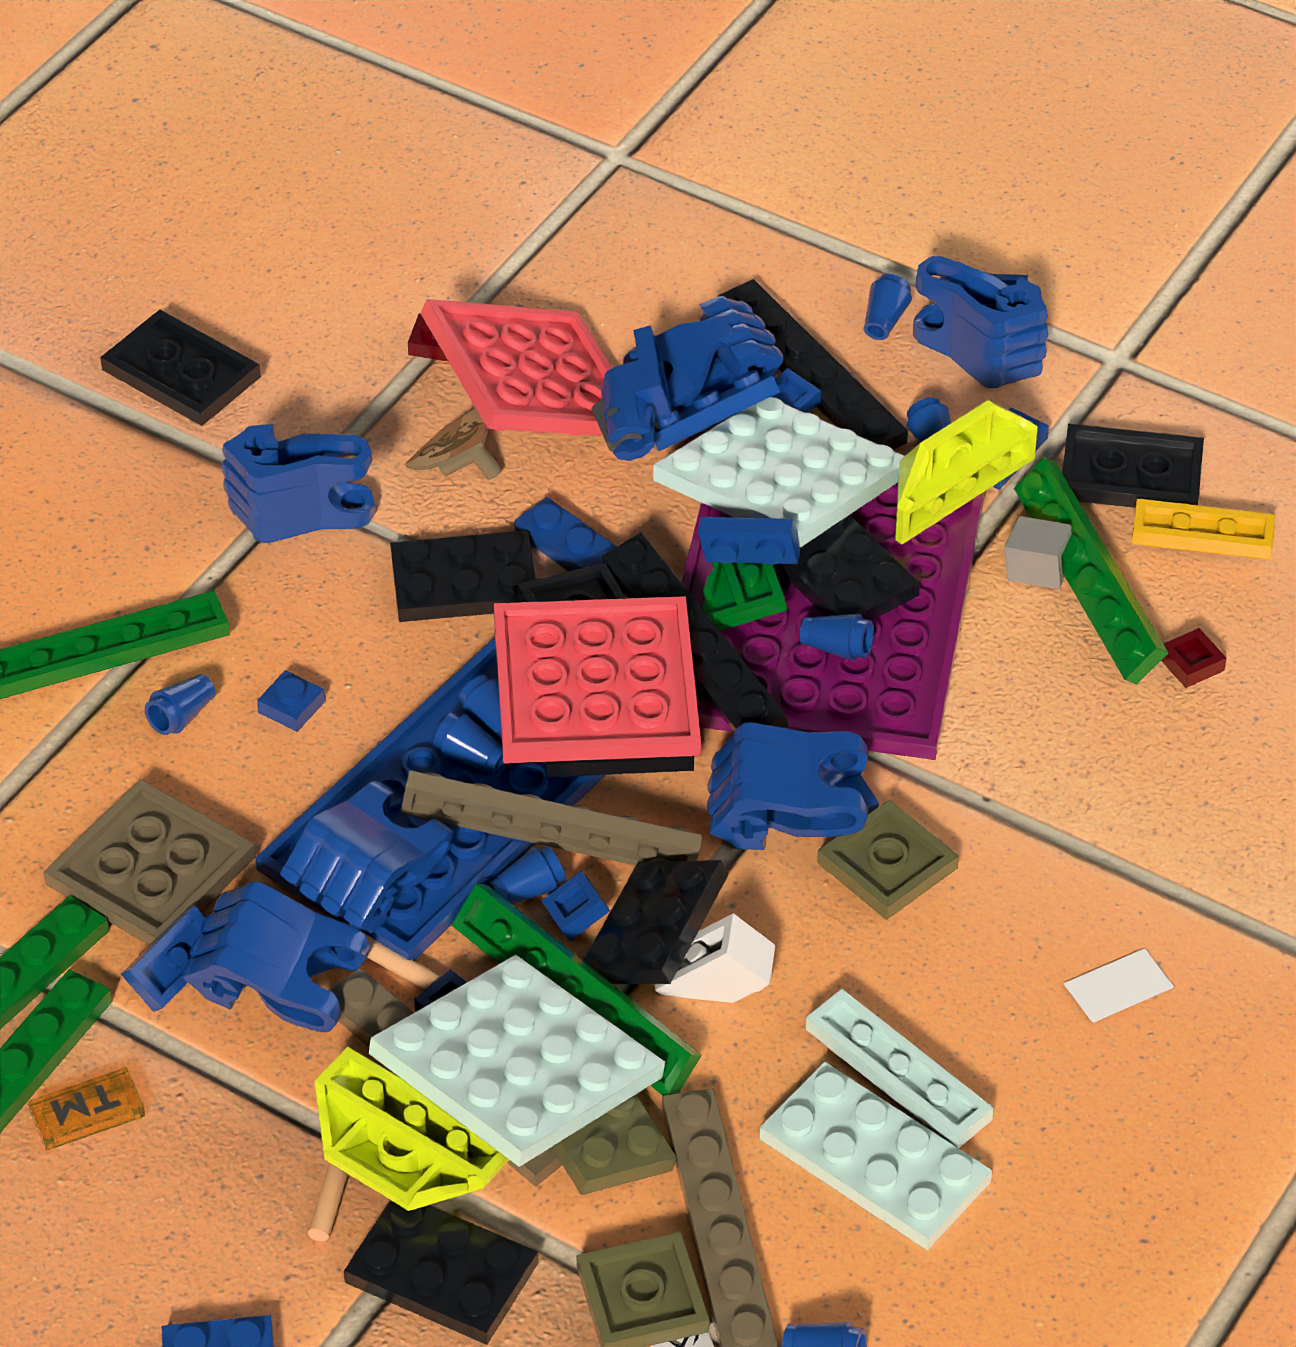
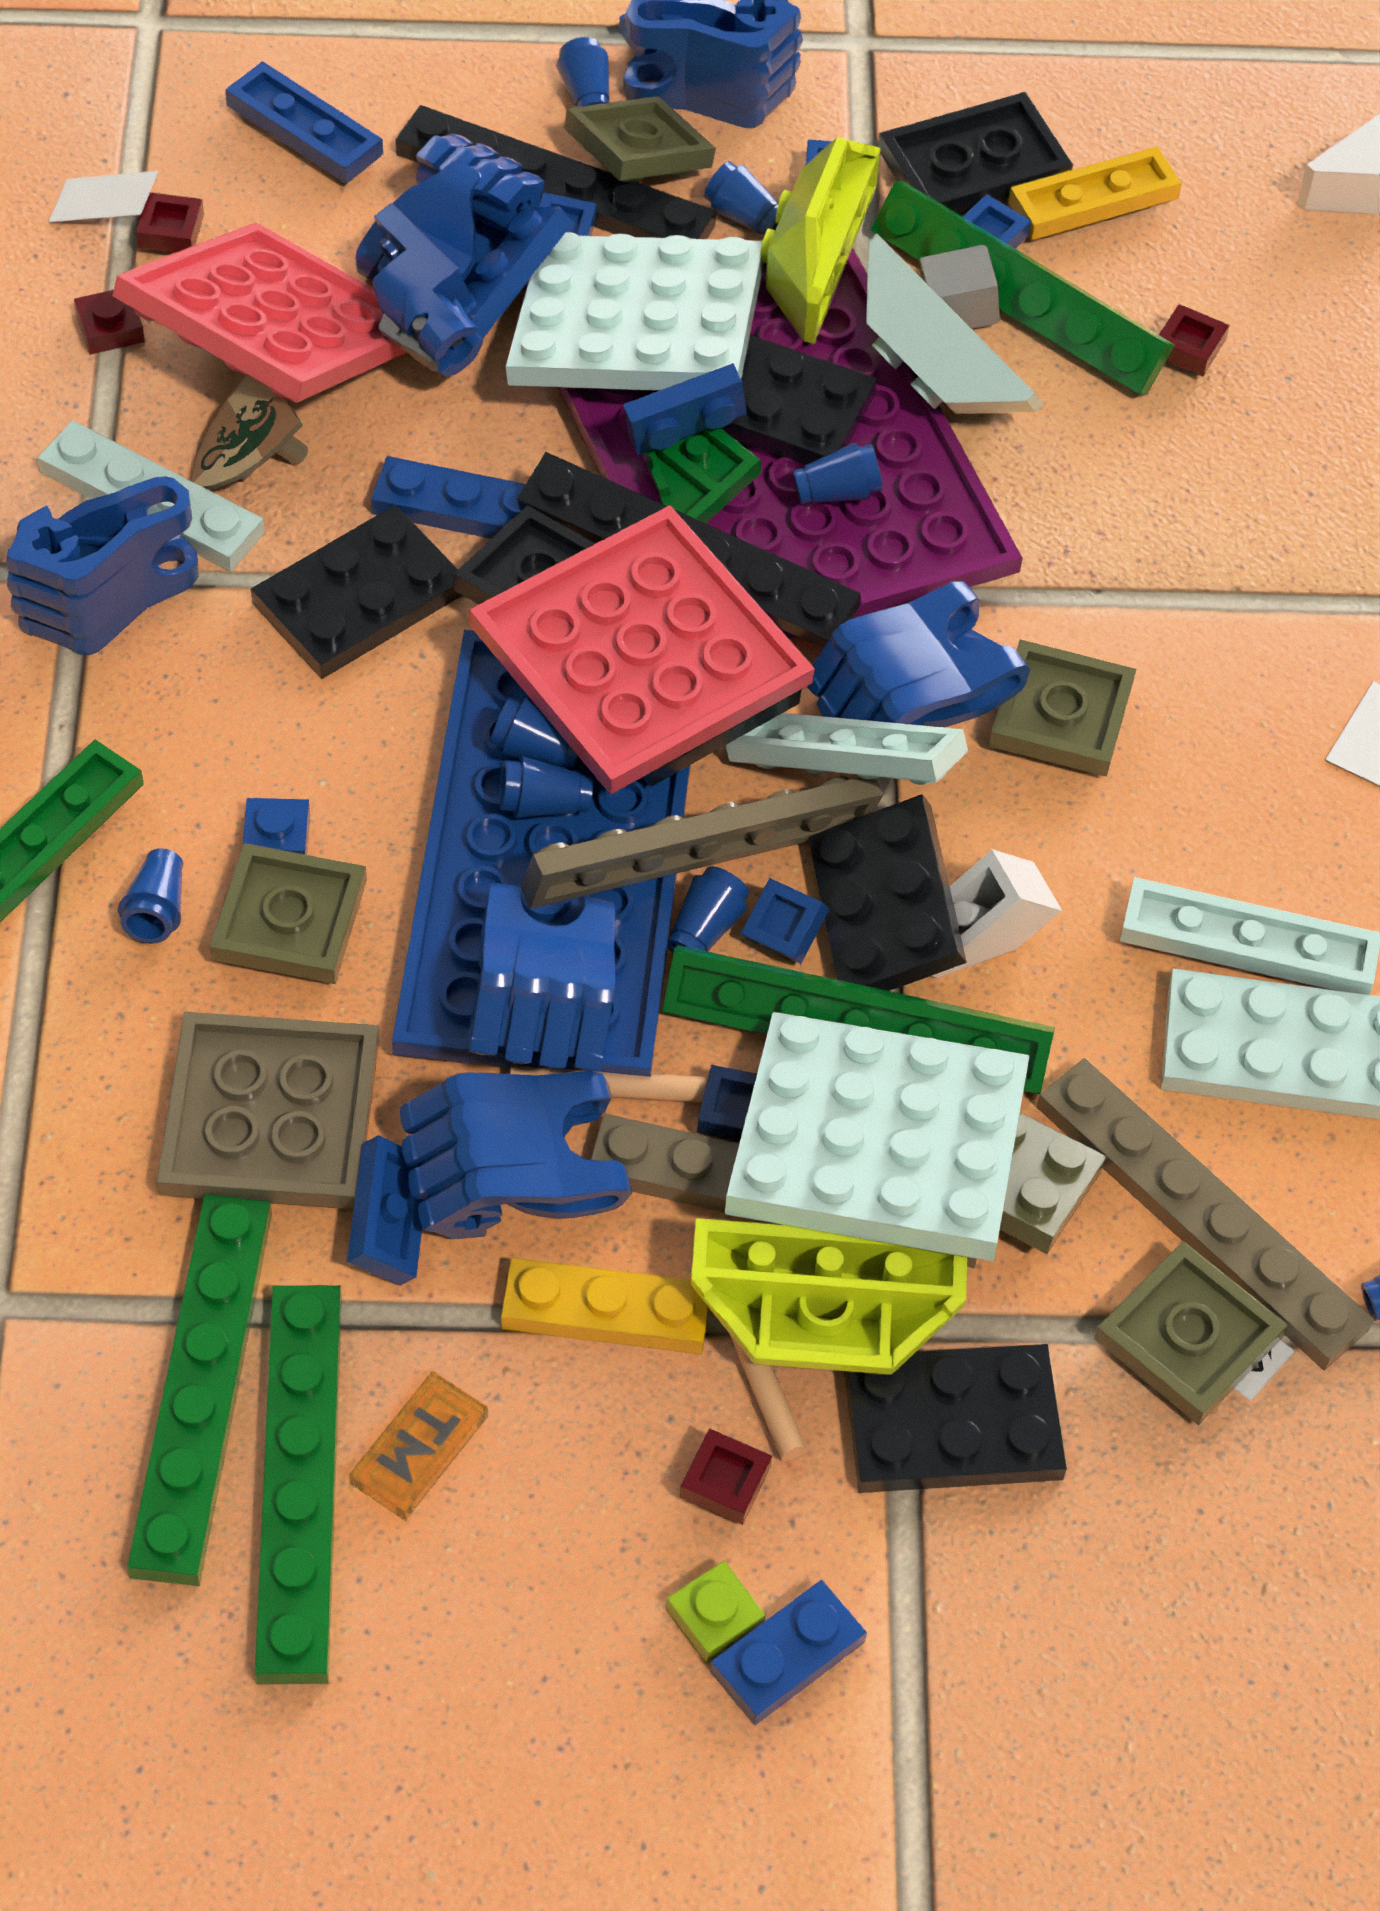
camera: 35 degrees left, 10 degrees up
(191, 1297) = (715, 1611): none -> lime plate
(256, 752) = (288, 913): none -> olive plate
(259, 1222) = (725, 1476): none -> dark red plate
(263, 1083) = (604, 1306): none -> yellow plate
(389, 477) = (101, 467): none -> light aqua plate
(490, 256) = (103, 196): none -> white sticker
(520, 288) = (169, 222): none -> dark red plate
(663, 260) = (304, 122): none -> blue plate
(696, 809) = (851, 747): none -> light aqua plate
(885, 359) = (639, 138): none -> olive plate
(973, 569) = (936, 342): none -> light aqua wedge
(1109, 520) = (999, 221): none -> blue plate

